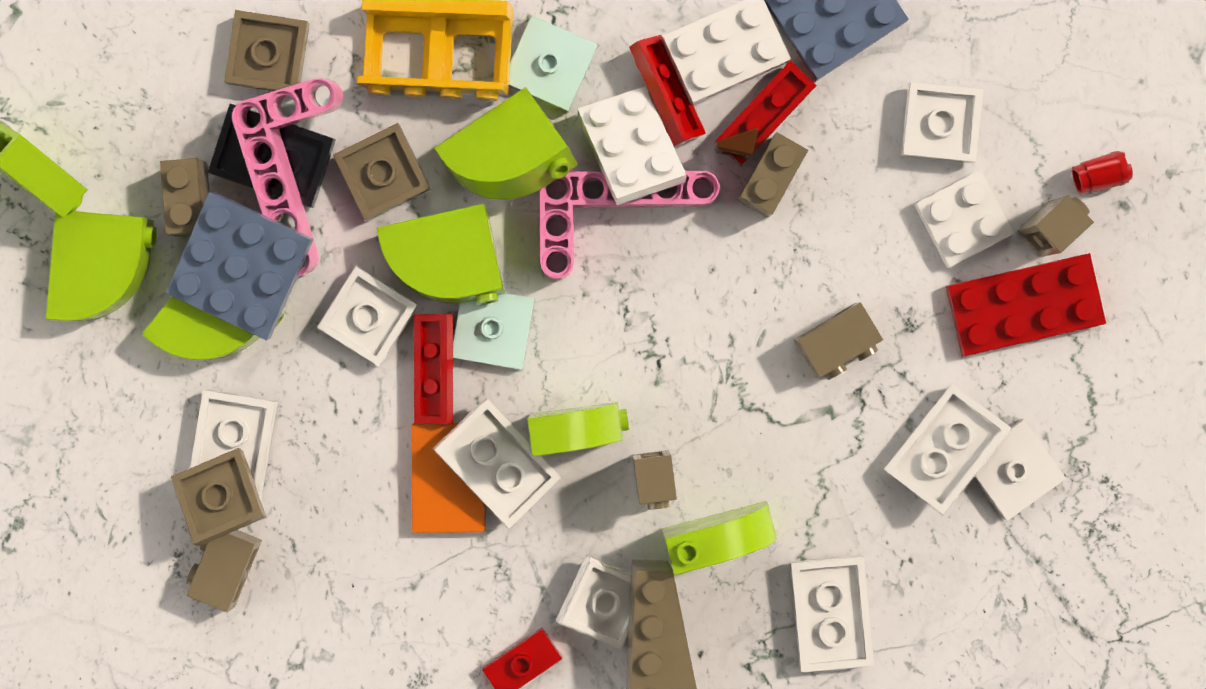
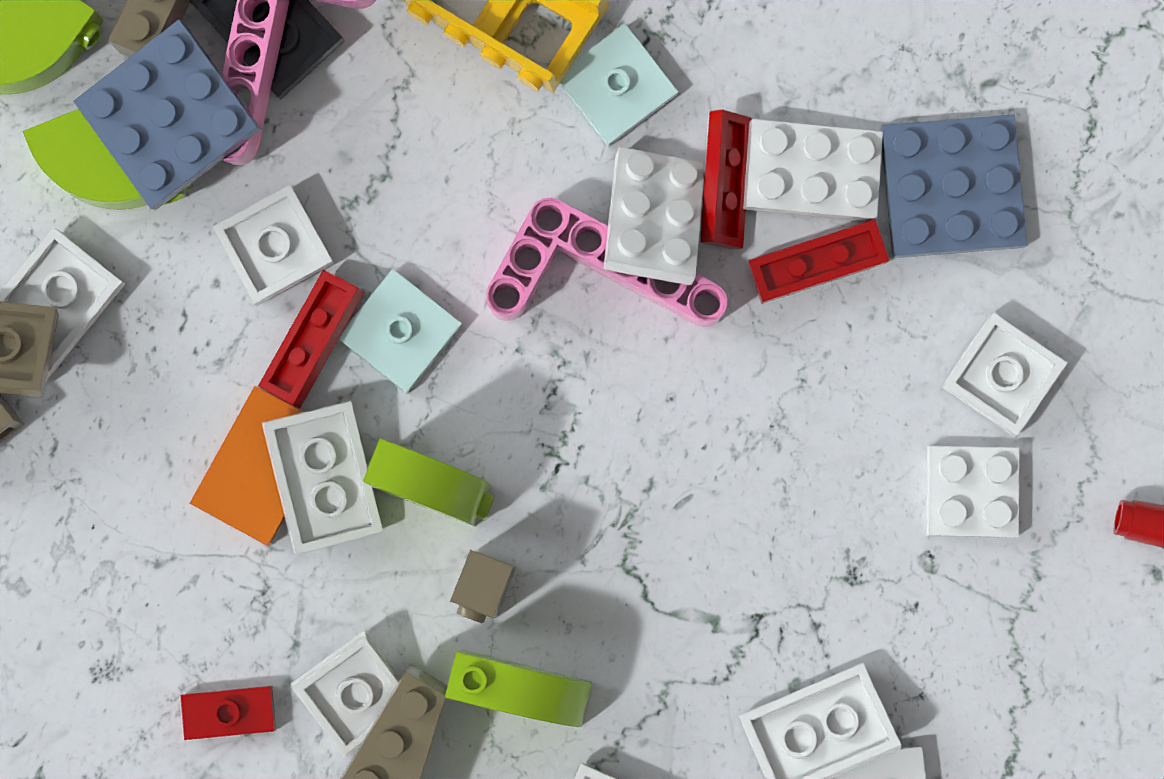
camera: 30 degrees right, 5 degrees down
(382, 172) = (374, 101): dark tan plate -> none
(446, 256) = (392, 226): lime brick -> none
(508, 151) = (519, 150): lime brick -> none
(739, 145) = (768, 276): reddish brown slope -> none
(772, 175) = (789, 330): dark tan brick -> none
(838, 341) = (765, 548): dark tan brick -> none
(1025, 304) = (991, 622): red plate -> none
(1056, 225) = (1068, 550): dark tan brick -> none

